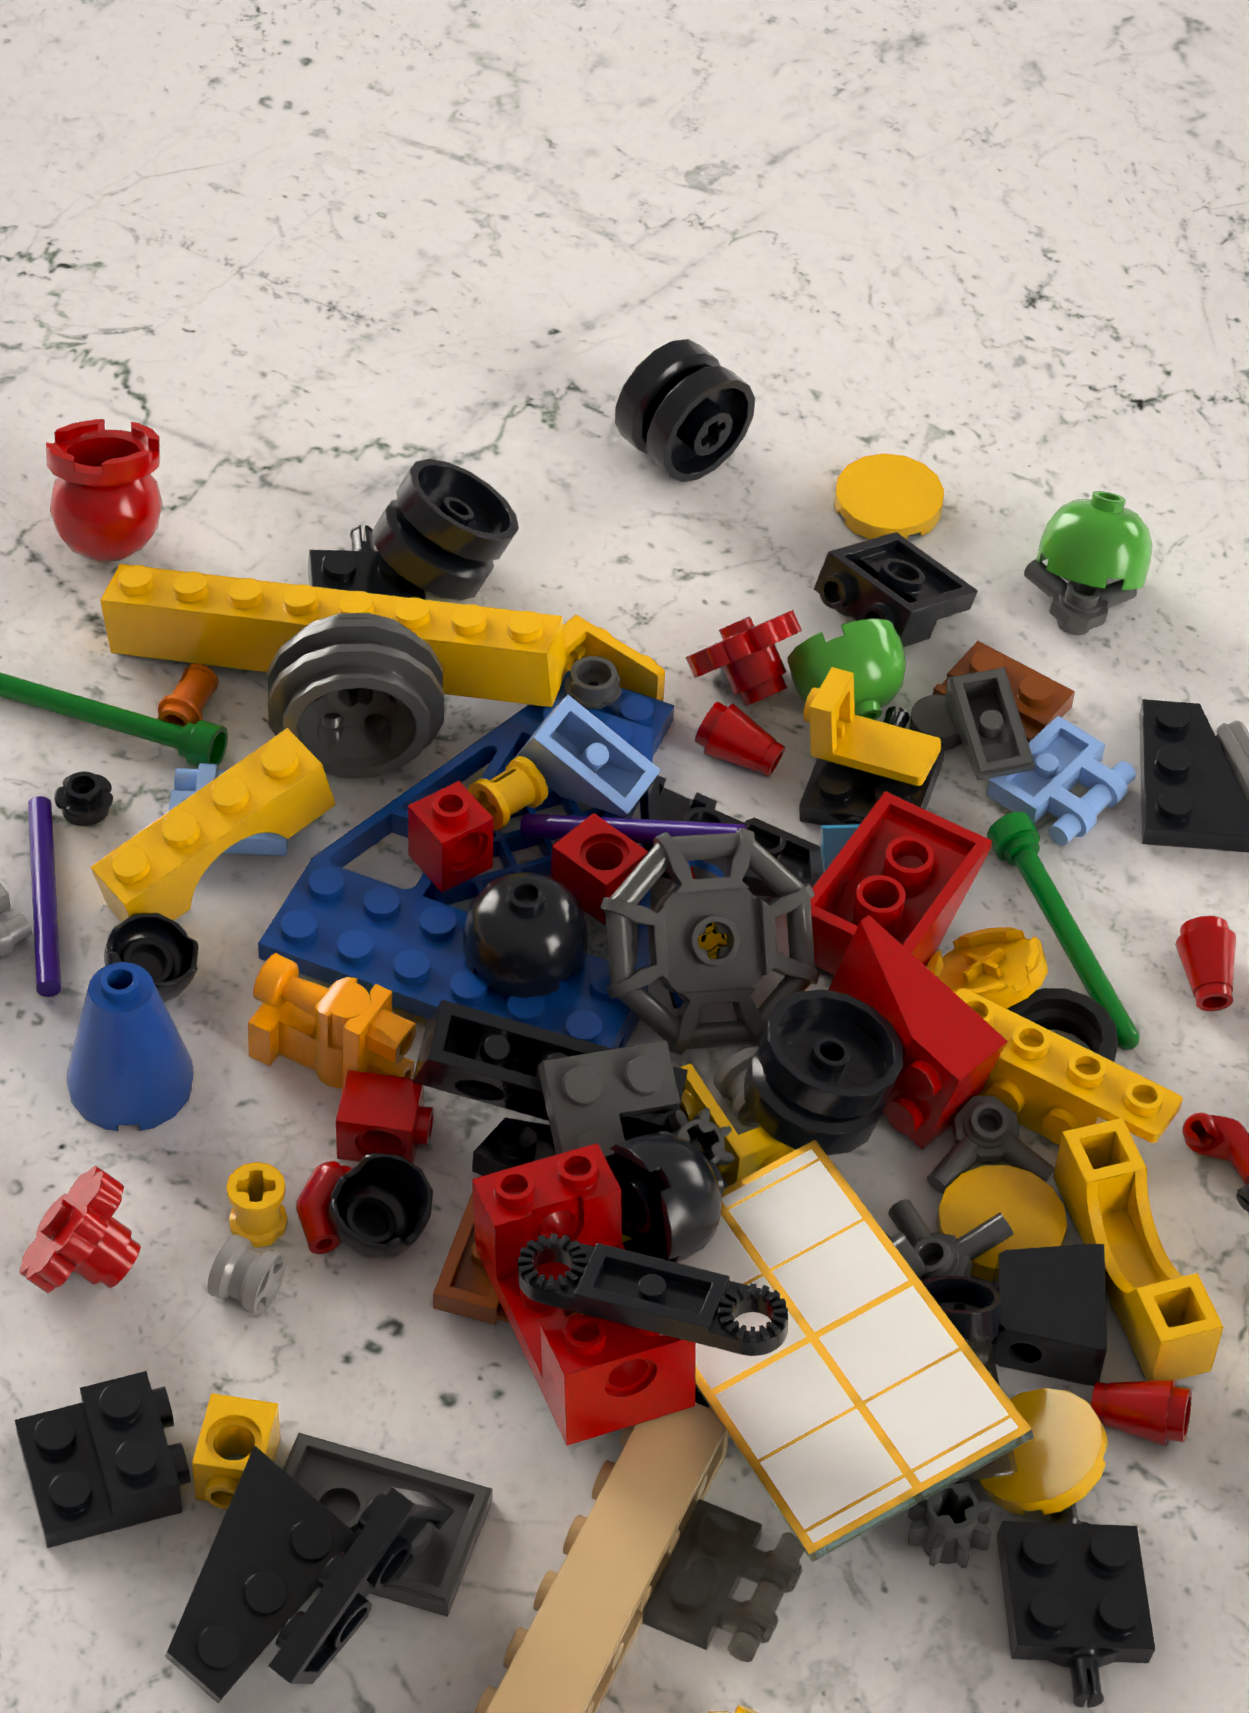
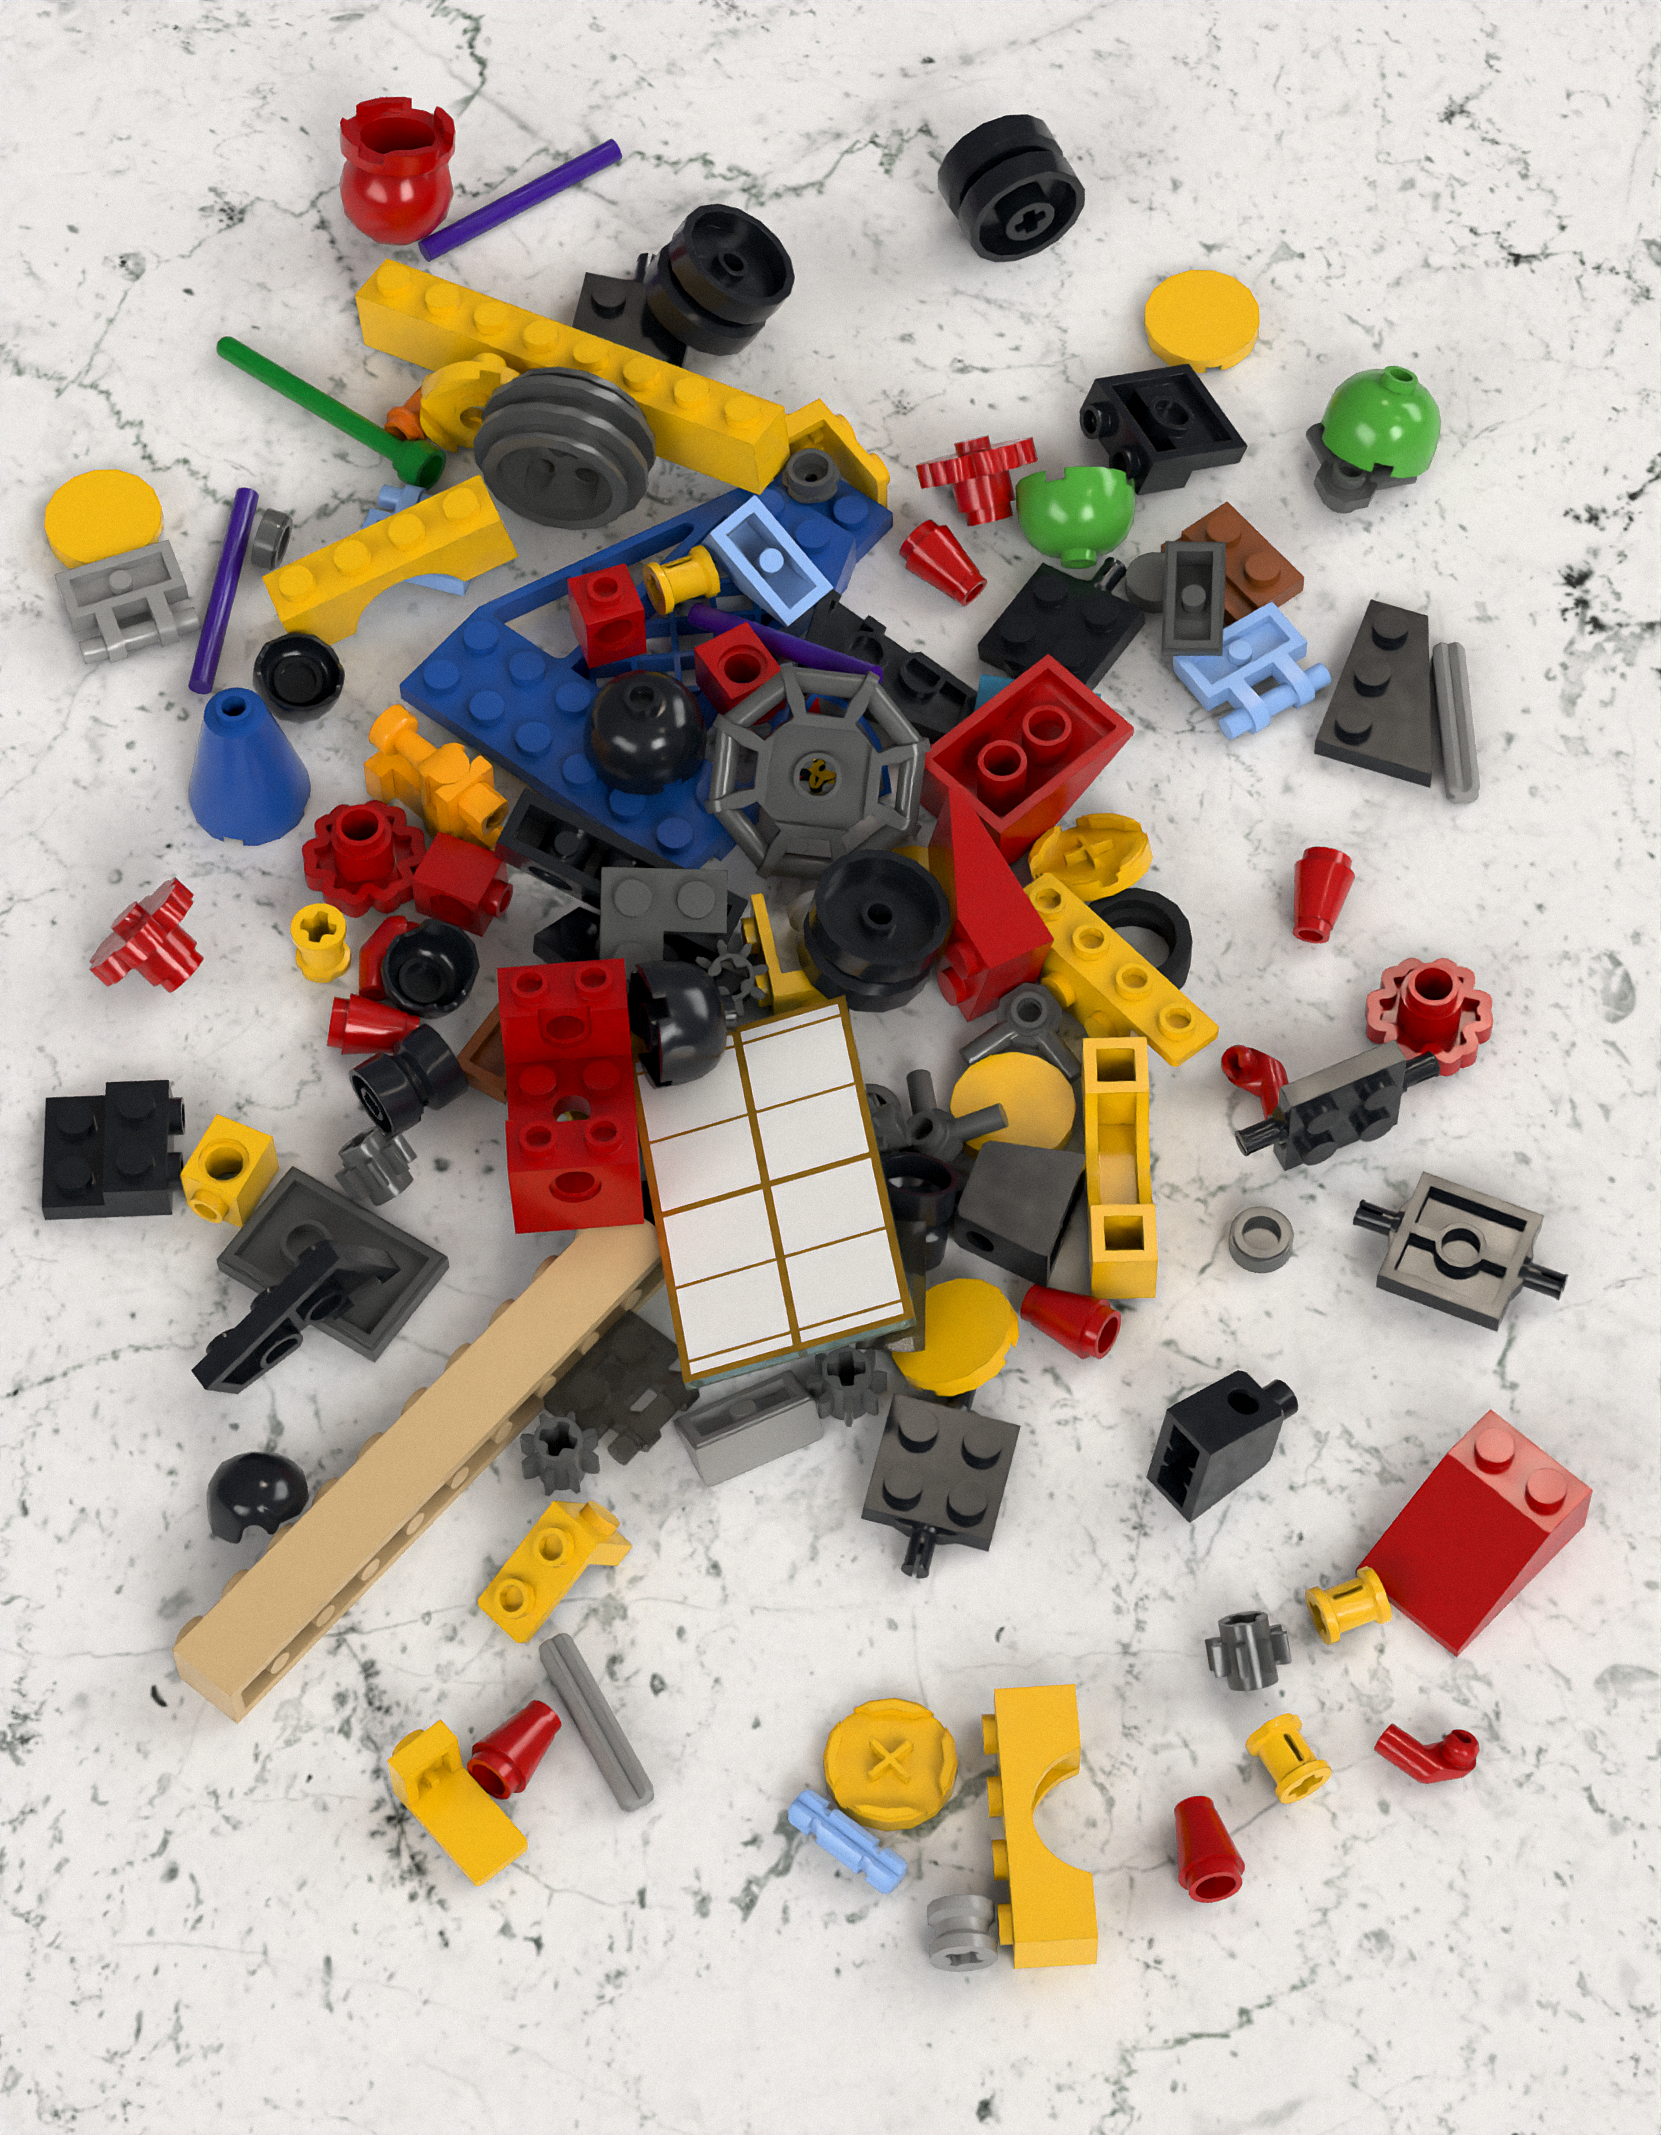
camera: 20 degrees right, 10 degrees up
(81, 837) = (271, 539): none -> dark grey tile
(84, 798) = (300, 504): black plate -> none
(219, 504) = (520, 200): none -> dark purple bar
(226, 665) = (452, 392): none -> yellow plate
(246, 1274) = (290, 1008): light grey wheel -> none
(254, 1575) = (204, 1286): black wing -> none
(273, 1114) = (363, 858): none -> red plant
(334, 1277) = (367, 1026): none -> red cone
(390, 1412) = (375, 1166): none -> dark grey gear
(392, 1323) = (401, 1085): none -> black wheel
(653, 1295) = (604, 1117): black plate -> none
(681, 1683) = (559, 1453): none -> dark grey gear
(863, 1592) = (750, 1428): none -> light grey slope
(864, 742) = (1053, 593): yellow bracket -> none
(1017, 842) = (1179, 727): green piece -> none

